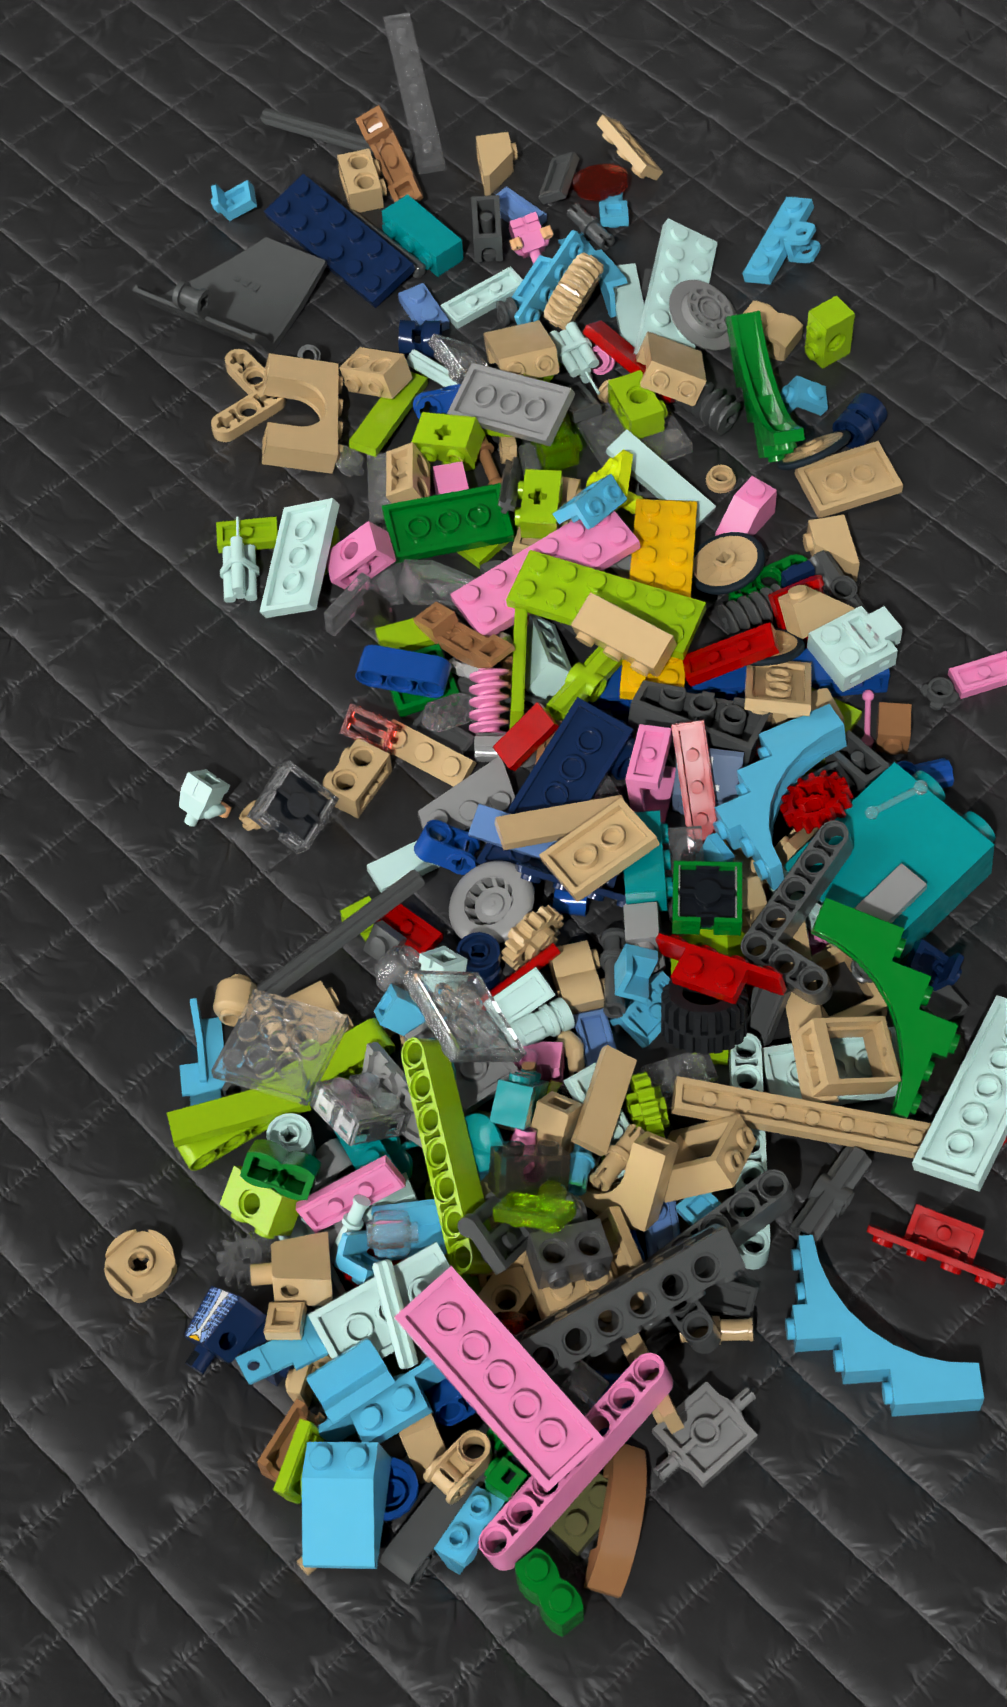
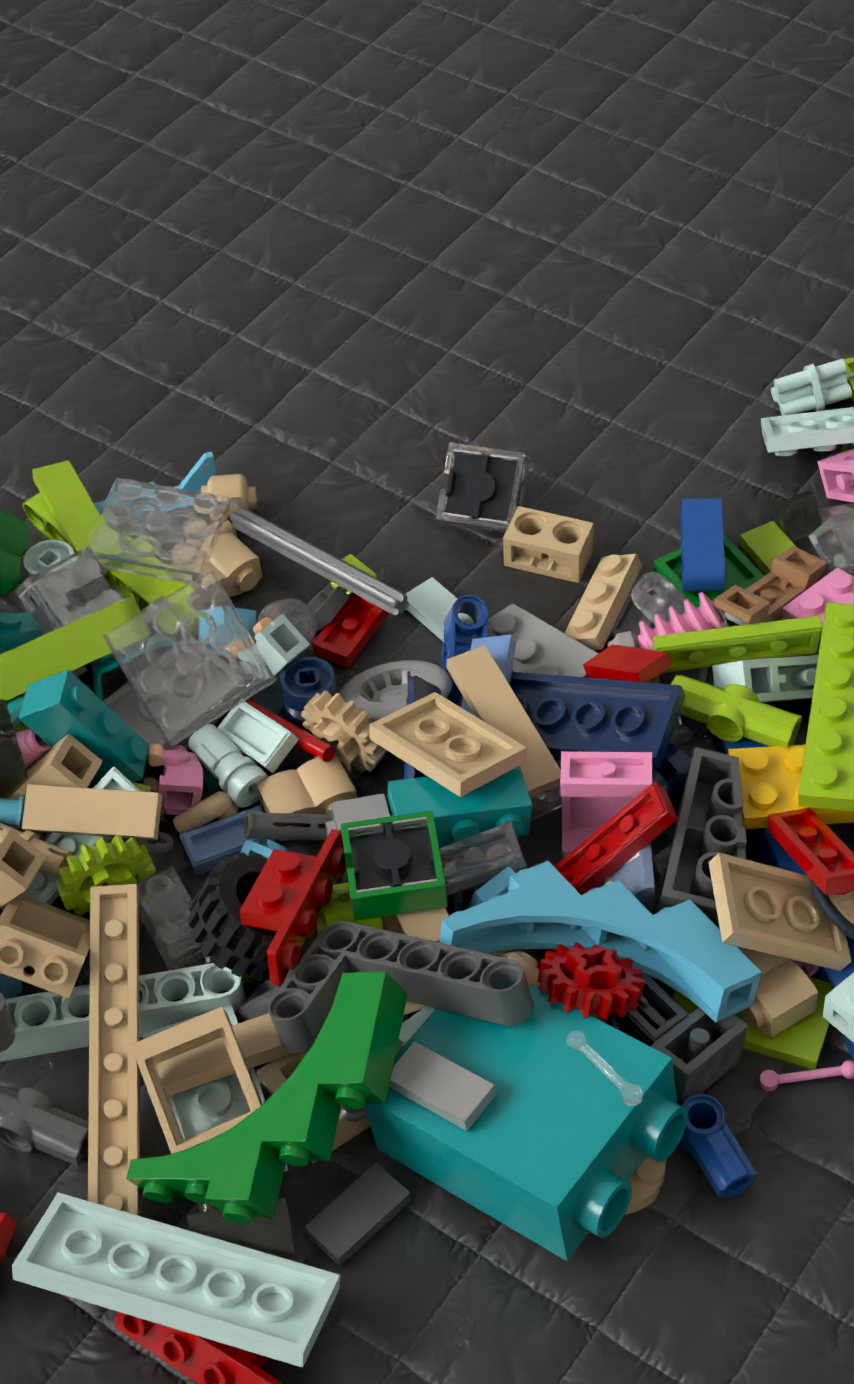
camera: 80 degrees right, 10 degrees down
(202, 797) = (484, 414): light aqua piece -> none
(346, 605) = (781, 482): clear tile -> none
(388, 737) = (616, 538): clear red tile -> none
(623, 636) = (792, 715): tan brick -> none
(633, 972) = (295, 827): medium azure panel -> none
(893, 728) = (792, 1102): medium nougat brick -> none
(933, 962) = (383, 1190): dark blue bracket -> none

